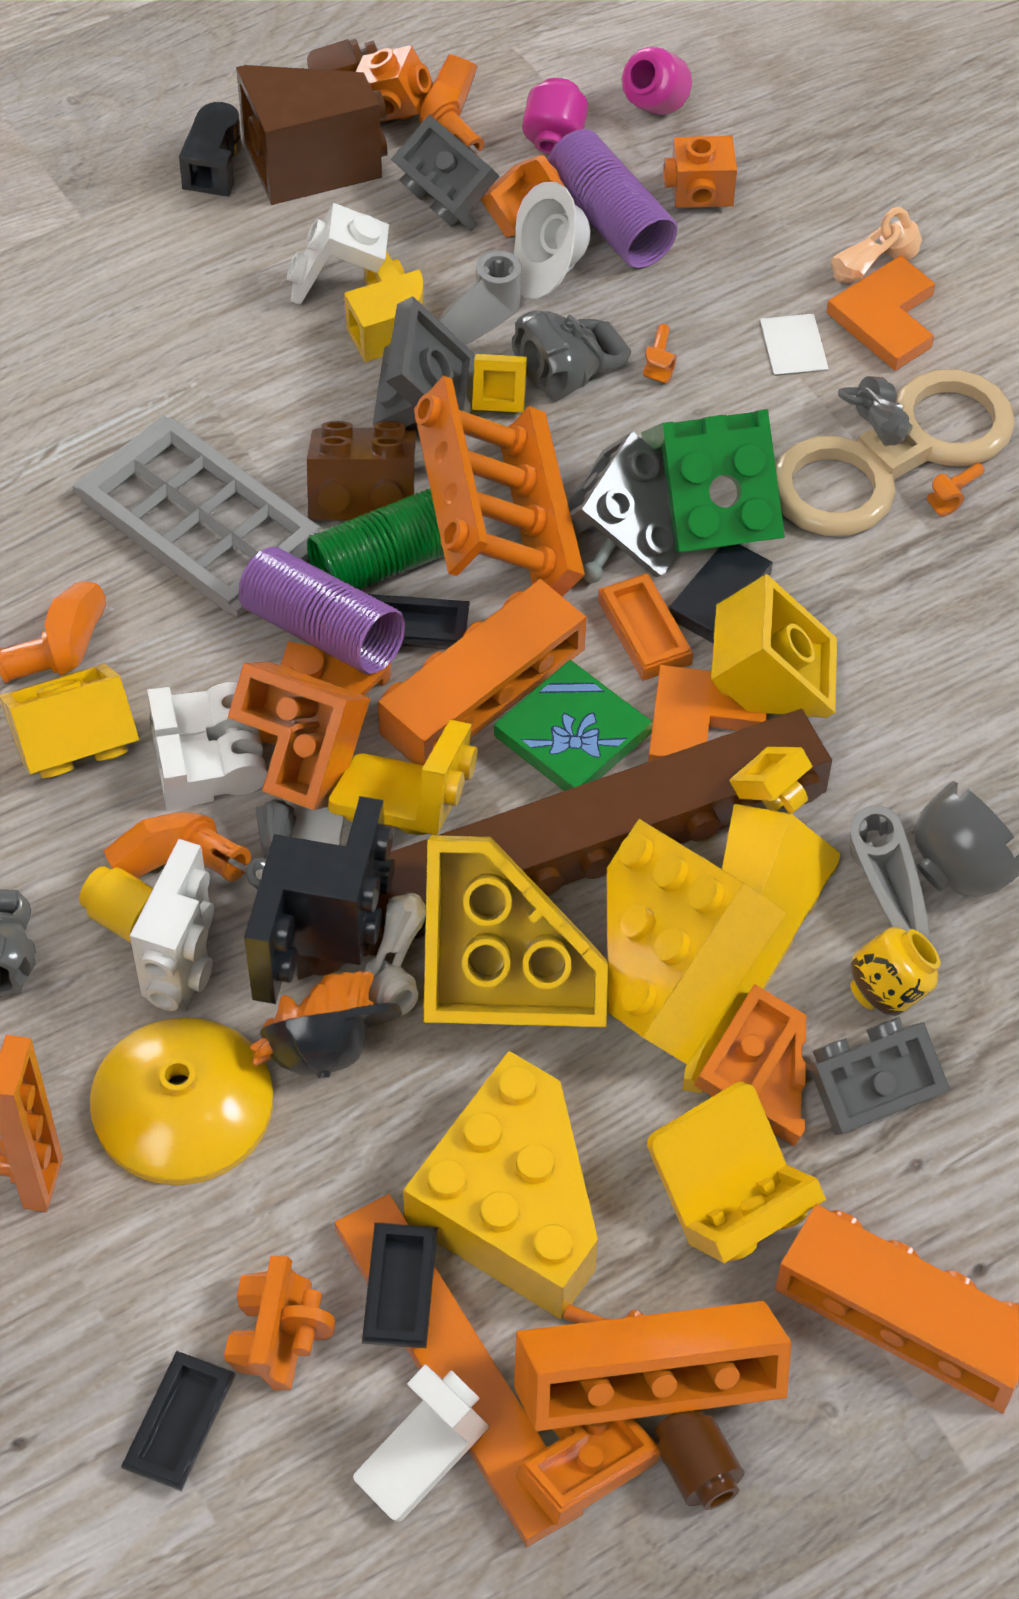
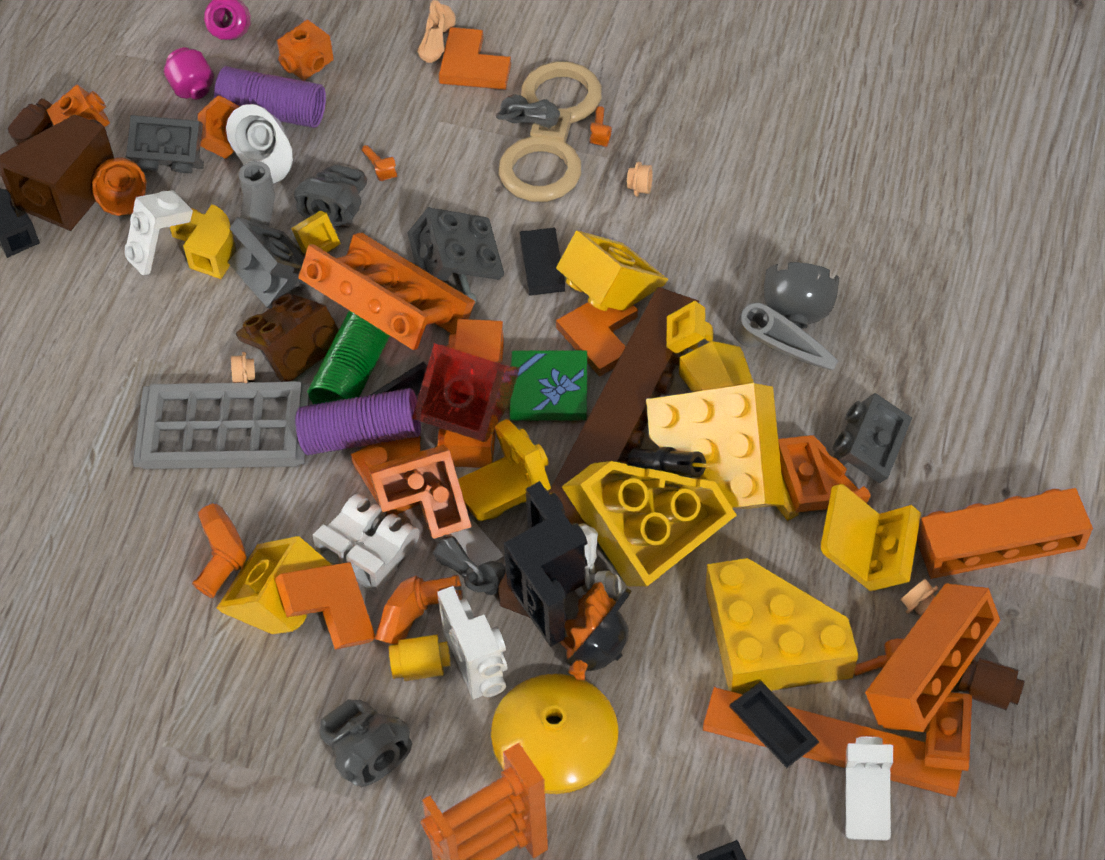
camera: 40 degrees left, 0 degrees up
(107, 767) = (333, 592): none -> orange tile
(276, 469) = (242, 369): none -> light nougat plate
(285, 1323) = (742, 814): orange hips -> none
(354, 180) = (117, 185): none -> orange hair
(448, 99) = (117, 106): orange arm -> none
(448, 656) = (464, 392): none -> clear red slope
(590, 907) = (669, 460): none -> black pin
(644, 625) = (524, 307): orange tile -> none
(715, 447) = (475, 191): green bracket -> none
(727, 1290) = (919, 597): none -> light nougat plate
(794, 344) = (440, 110): white sticker -> none
(894, 971) = (832, 380): yellow head -> none
(933, 578) = (640, 178): none -> light nougat plate

